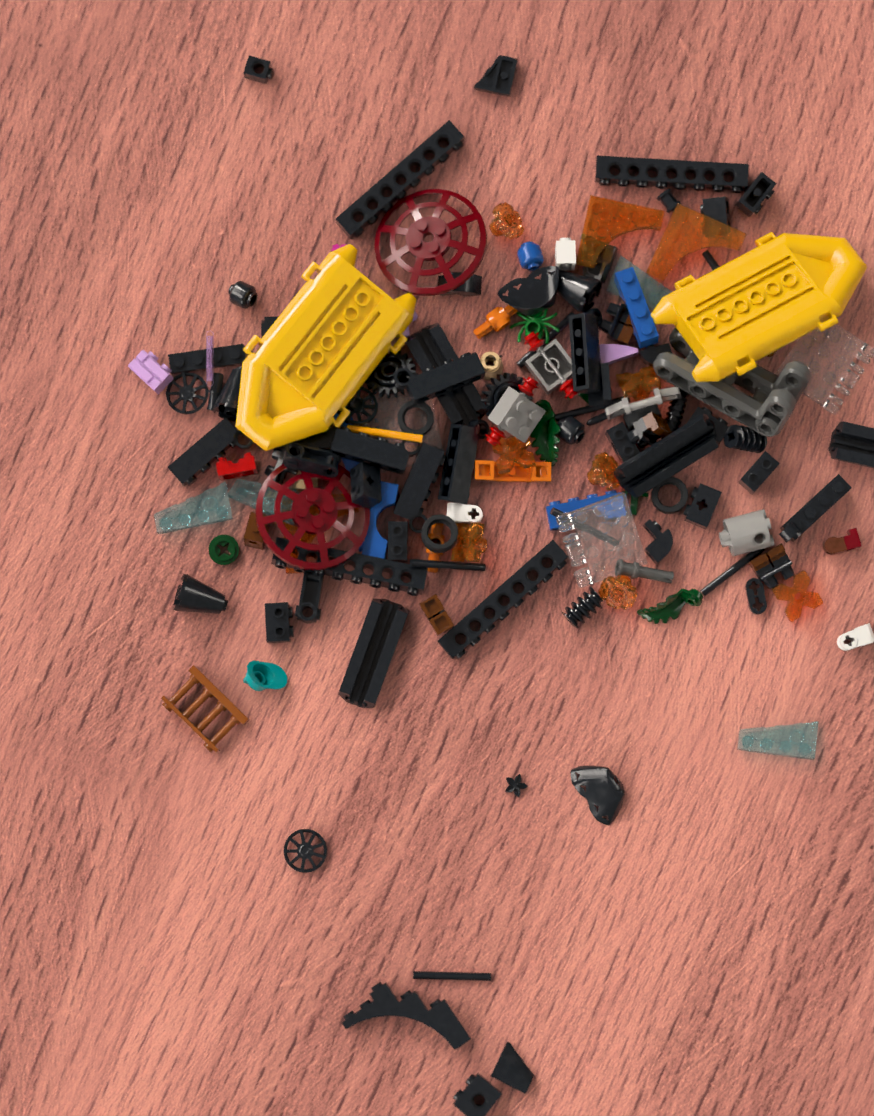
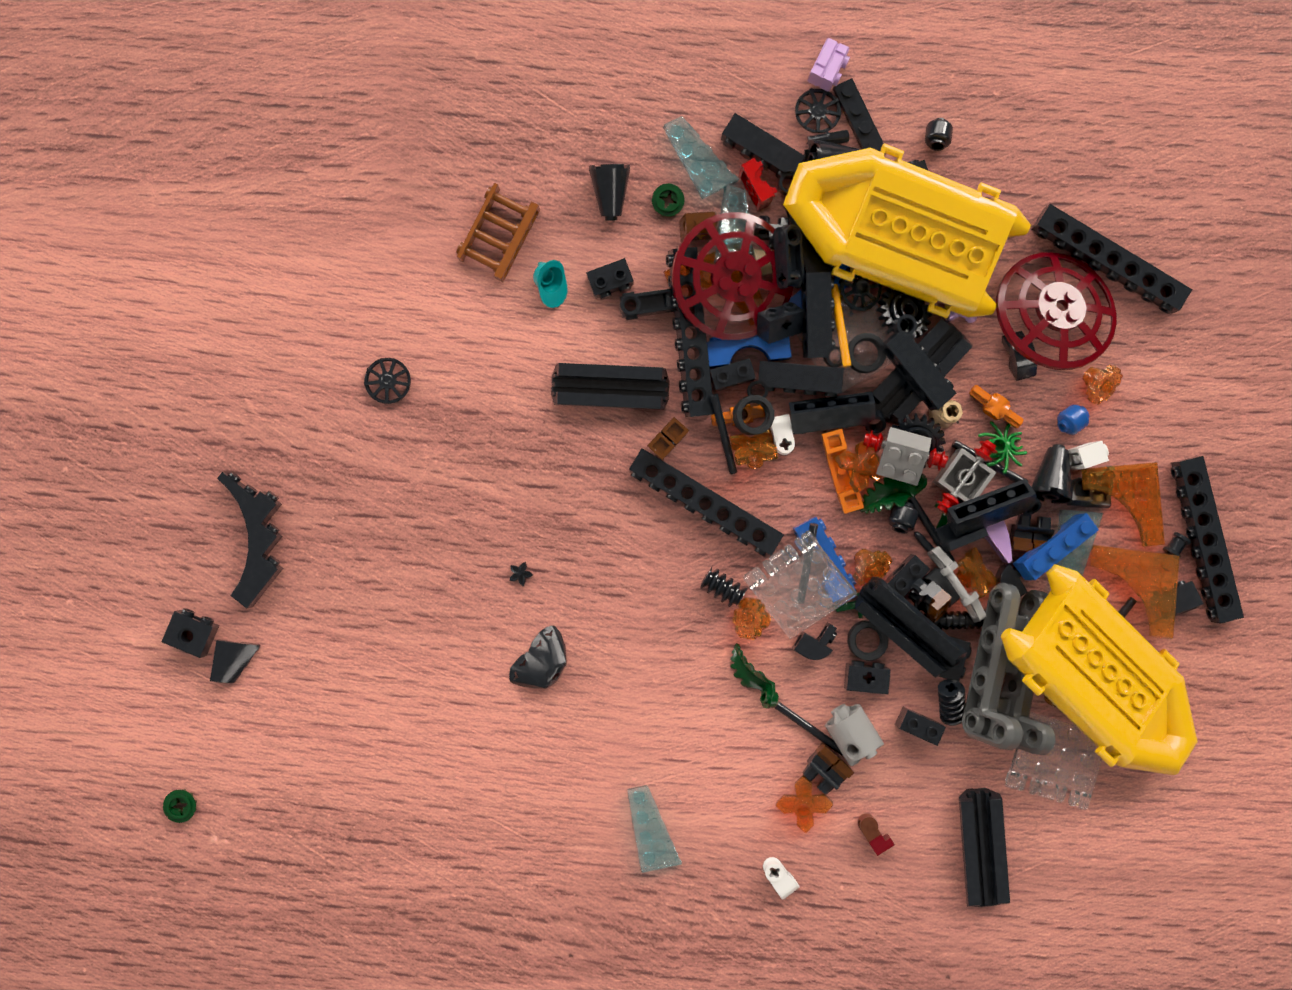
camera: 65 degrees right, 5 degrees up
(209, 362) = (863, 120): lavender piece -> none
(252, 64) = (1184, 66): black brick -> none
(451, 975) = (307, 568): black bar -> none
(499, 77) = (1252, 328): black wing -> none
(533, 294) = (1036, 434): black piece -> none
(634, 570) = (778, 629): dark grey pin -> none
(751, 597) = (792, 765): black beam -> none
(752, 198) = (1207, 632): black brick -> none
(814, 509) = (901, 795): black hinge -> none

